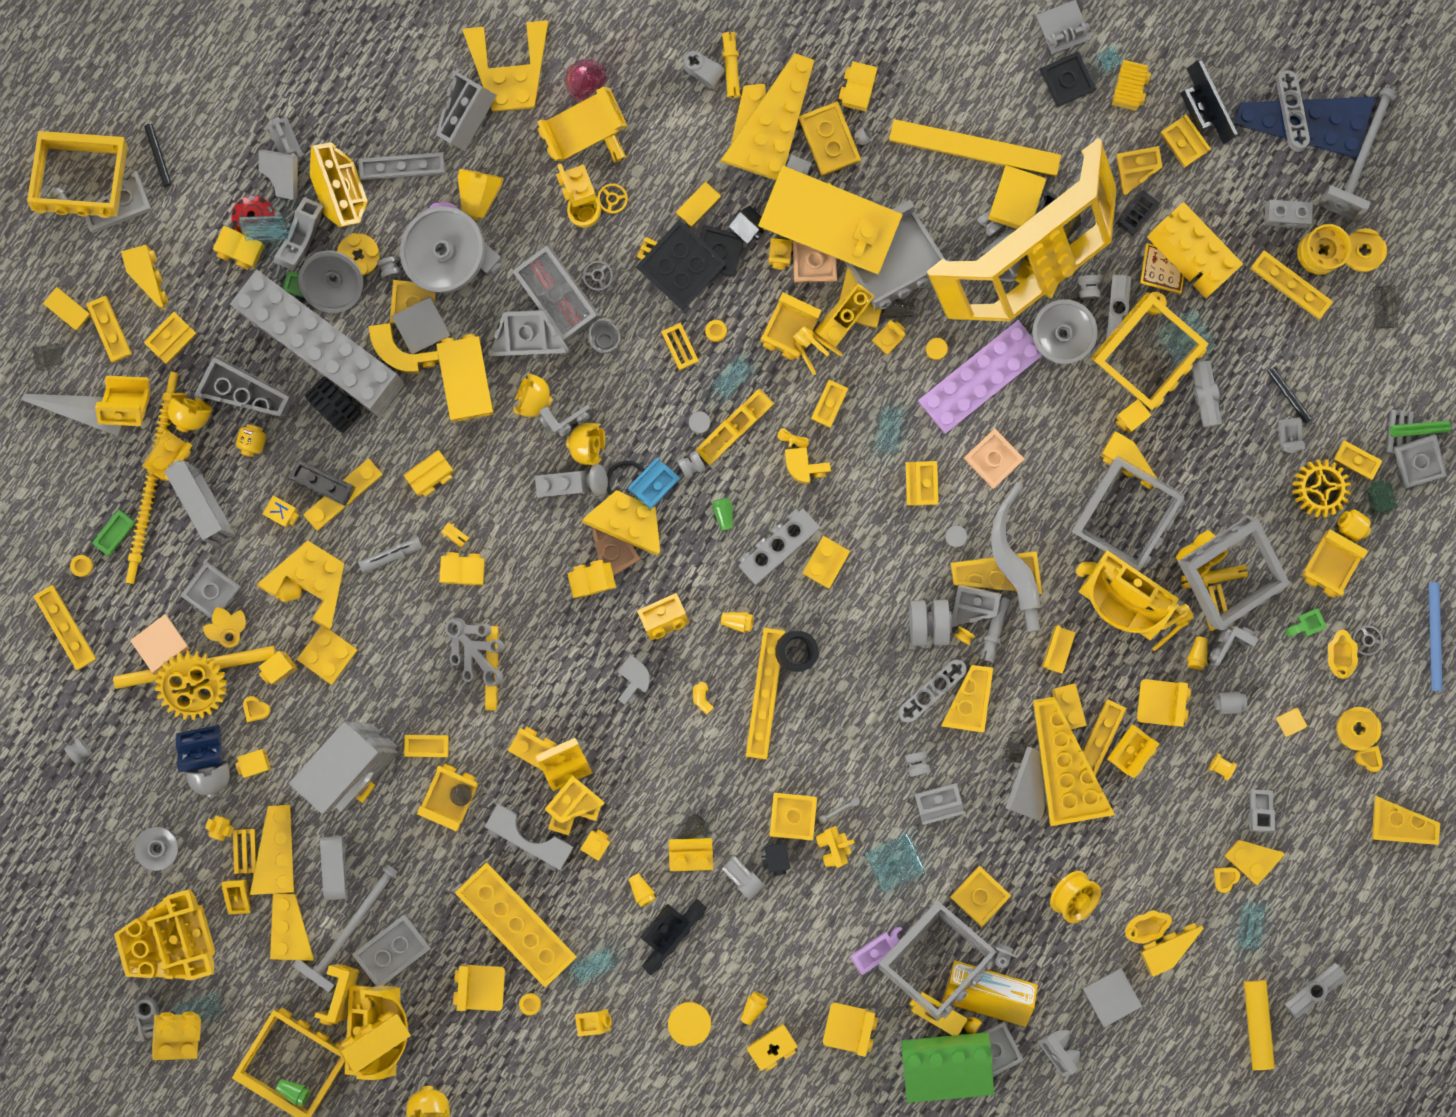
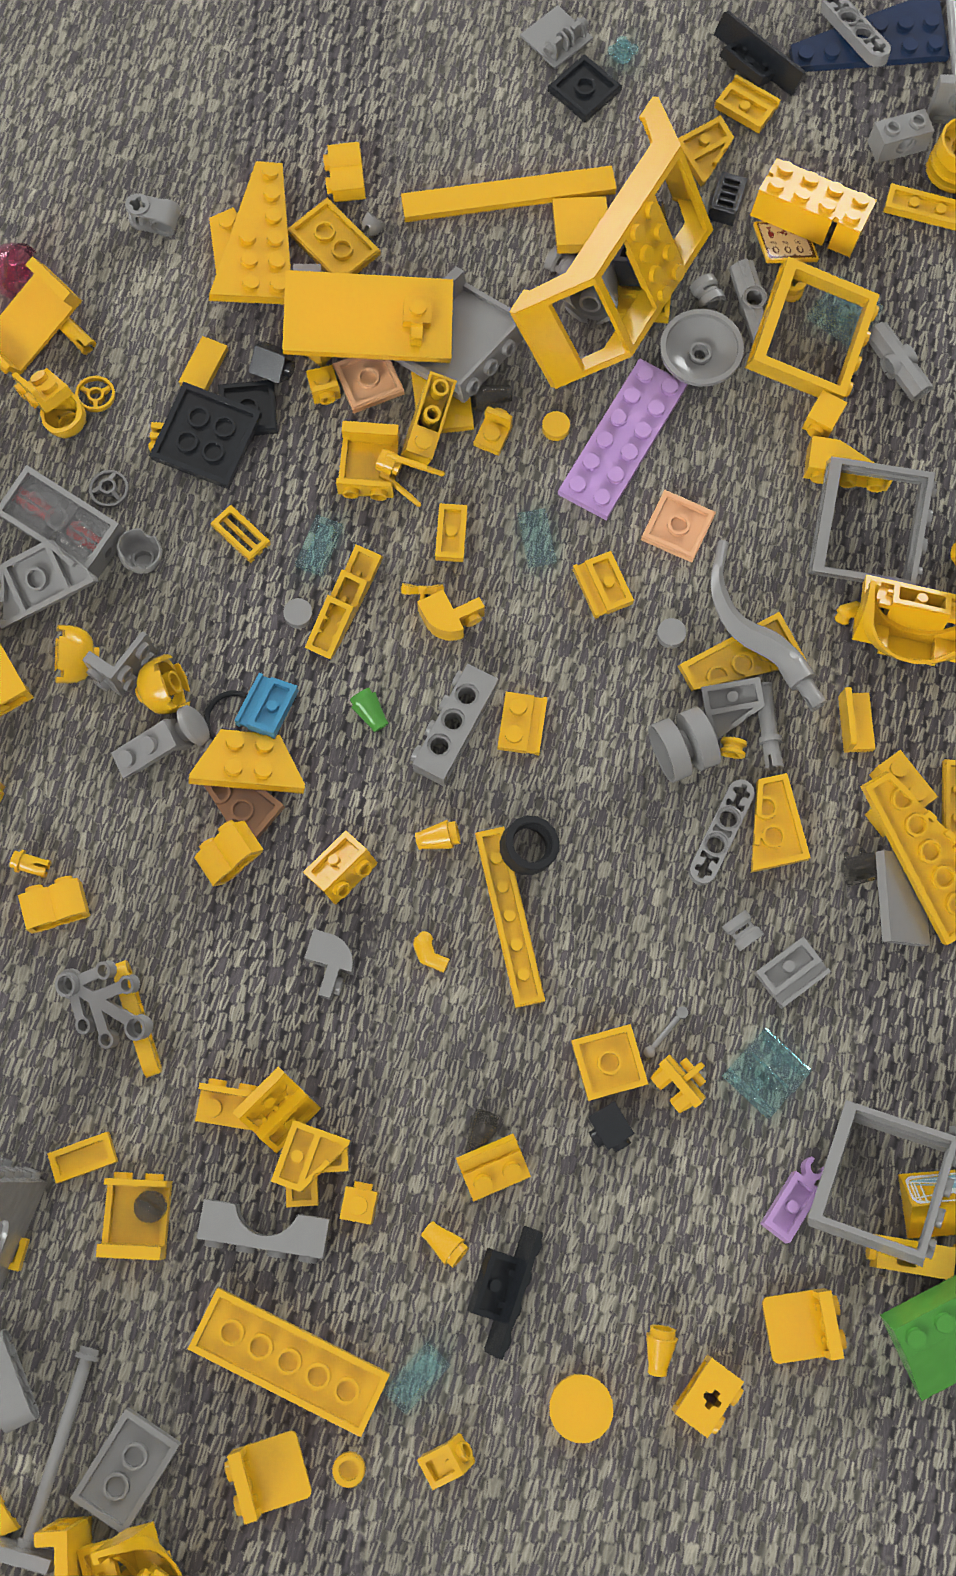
camera: 20 degrees left, 10 degrees down
(691, 465) = (306, 666): light grey wheel -> none
(716, 330) = (278, 499): yellow tile -> none
(731, 67) = (181, 192): yellow pin -> none
(746, 881) = (581, 1174): light grey piece -> none
(980, 896) = (896, 1074): yellow tile -> none
(1130, 85) = (659, 67): yellow brick -> none

